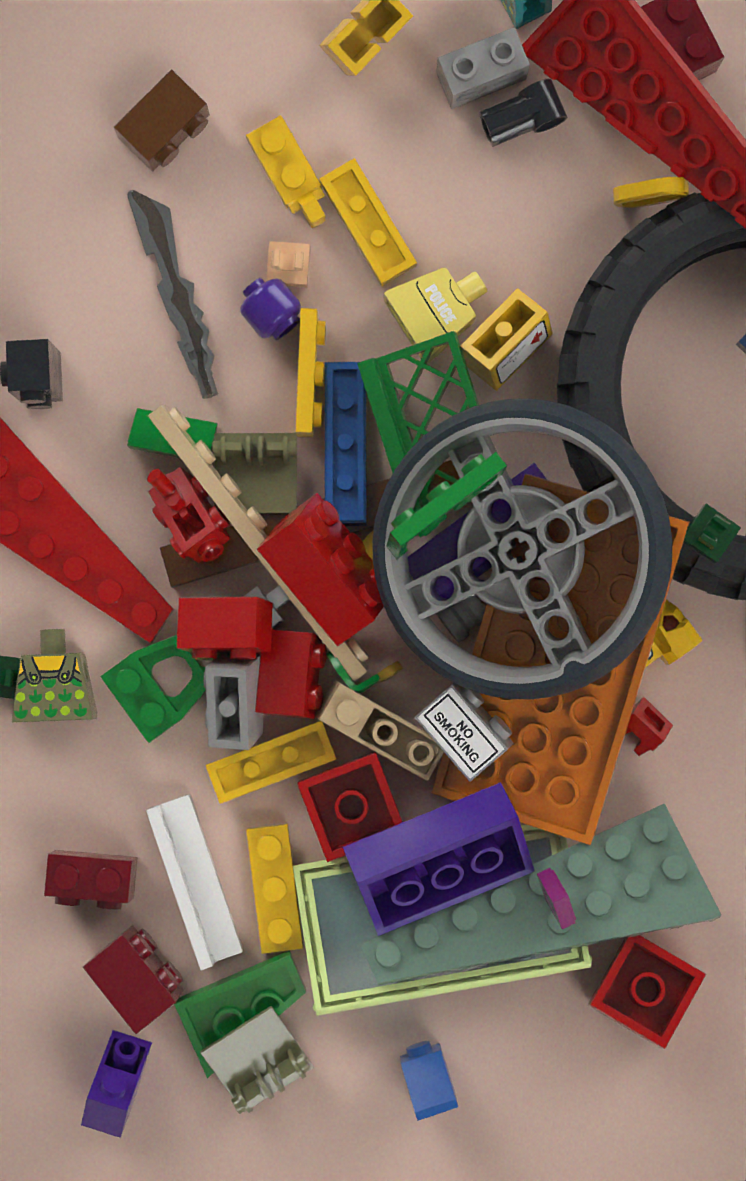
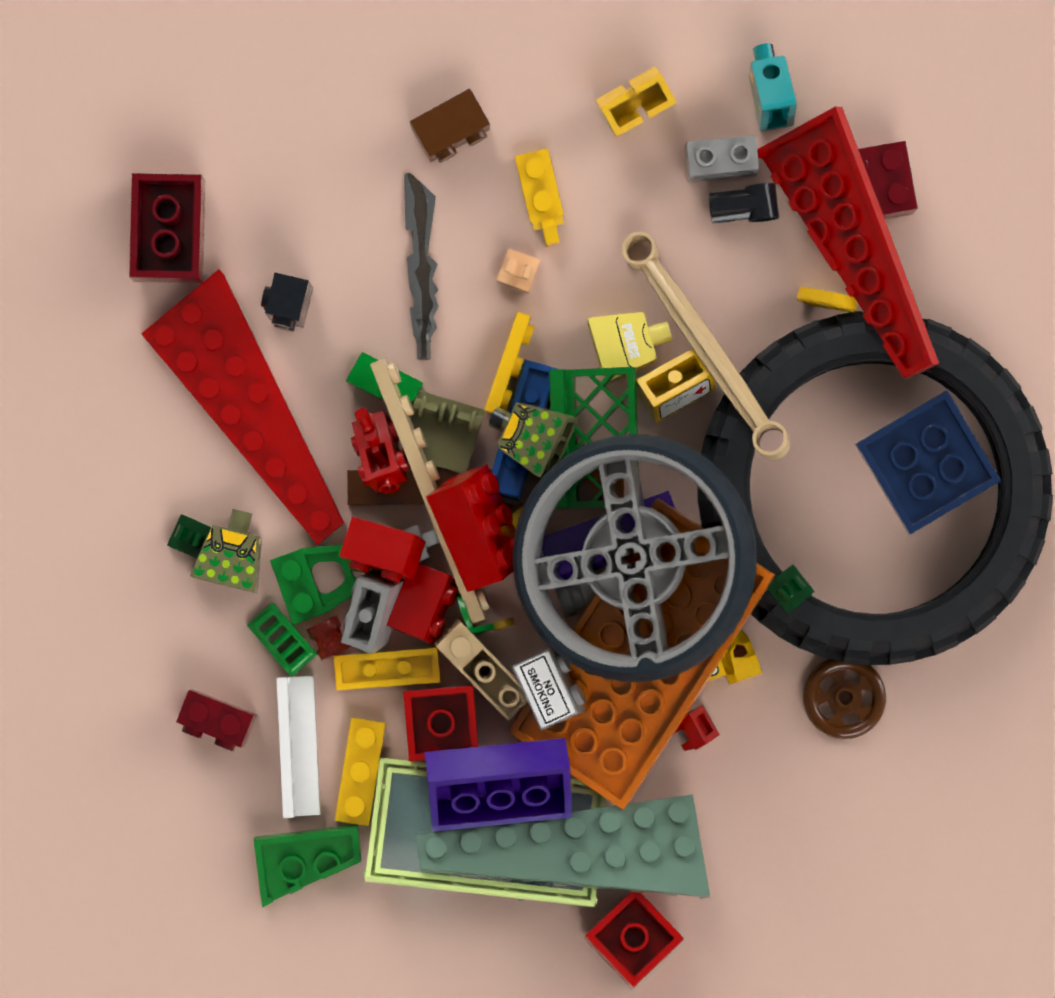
camera: 15 degrees right, 0 degrees up
(116, 1084) = (188, 890): dark purple slope -> none
(135, 978) = (229, 809): dark red brick -> none
(170, 781) = (300, 662): none -> green slope
(192, 745) = (328, 637): none -> clear red wheel
(257, 1060) = (306, 903): hinge -> none
(270, 308) = (493, 303): dark purple head -> none
(361, 443) = (533, 435): none -> olive torso
(368, 222) = (592, 255): yellow plate -> none
(428, 1080) = (439, 958): blue slope -> none
(477, 476) = (581, 502): green wing -> none
(529, 283) = (705, 345): none -> tan piece
(556, 898) = (582, 842): magenta tile -> none

